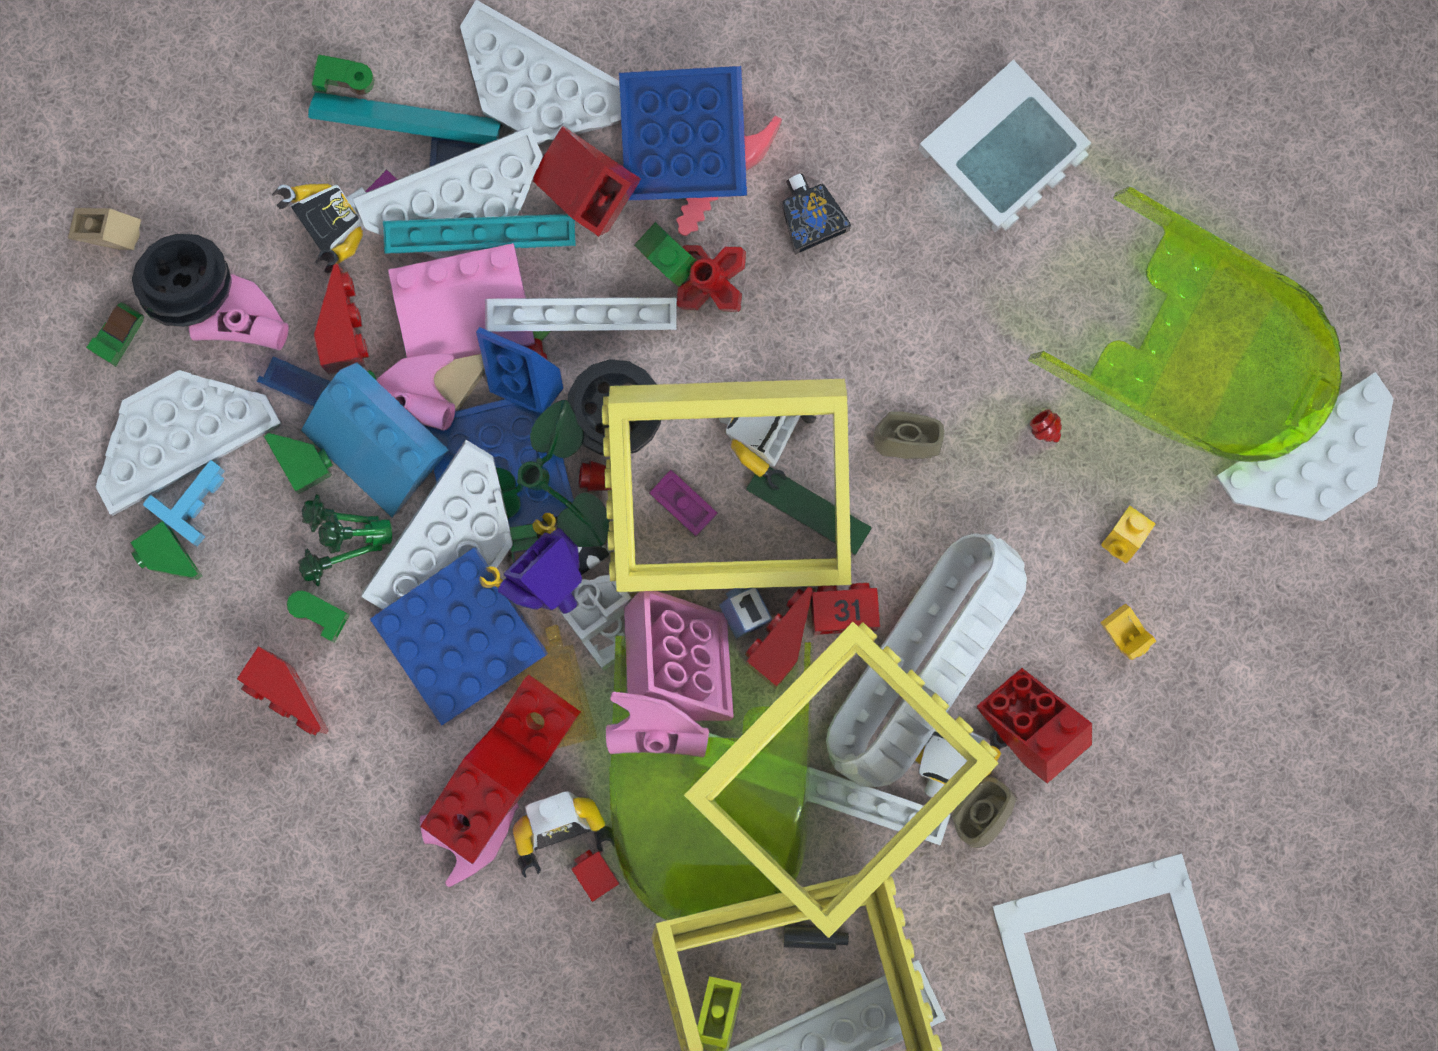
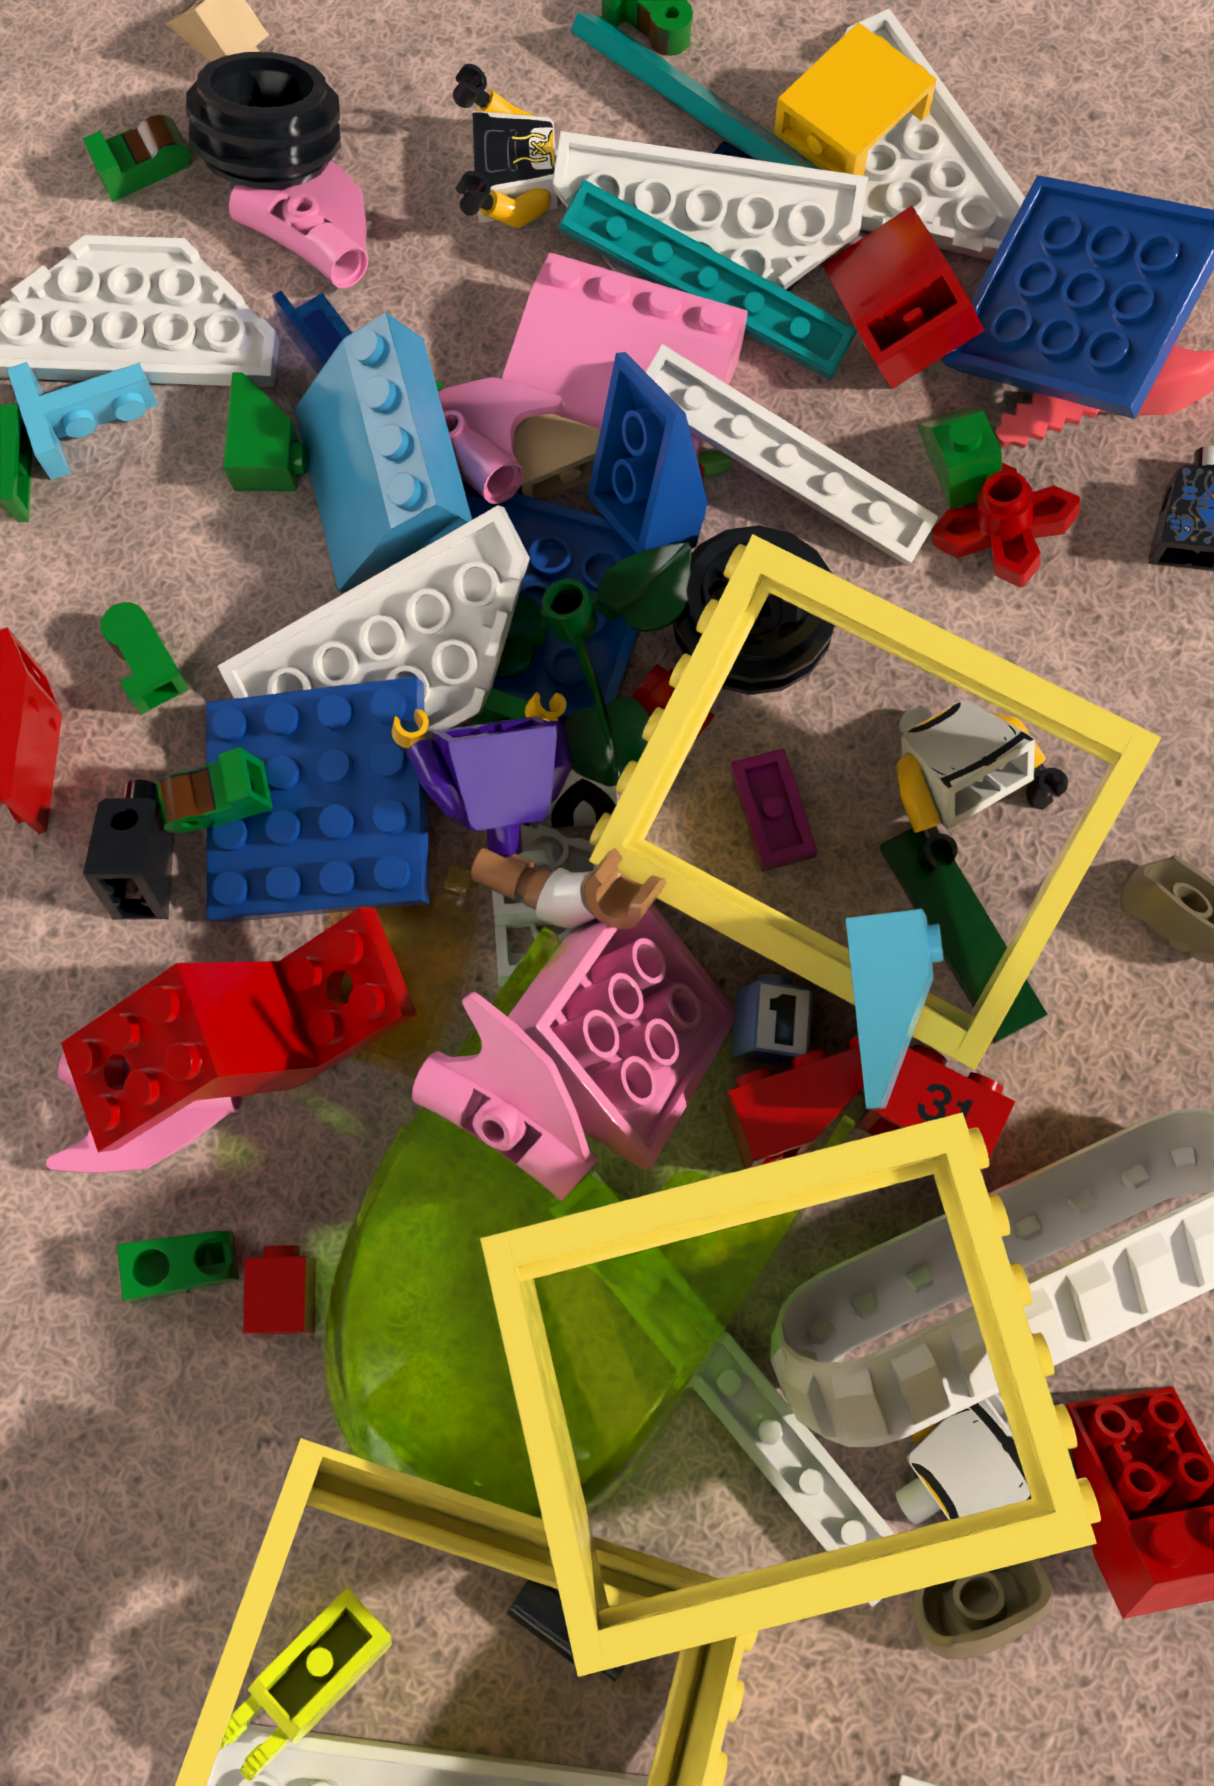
camera: 35 degrees right, 10 degrees down
(333, 534) = (235, 534): dark green plant -> none
(335, 334) = (433, 276): red slope -> none
(391, 719) = (131, 844): none -> black torso
(410, 664) = (214, 793): none -> green leg
(496, 82) = (851, 101): none -> yellow panel
(539, 892) = (176, 1265): none -> green leg
(555, 821) = (272, 1166): torso -> none
(618, 612) = (566, 896): none -> medium nougat piece
(791, 572) = (890, 985): none -> medium azure slope

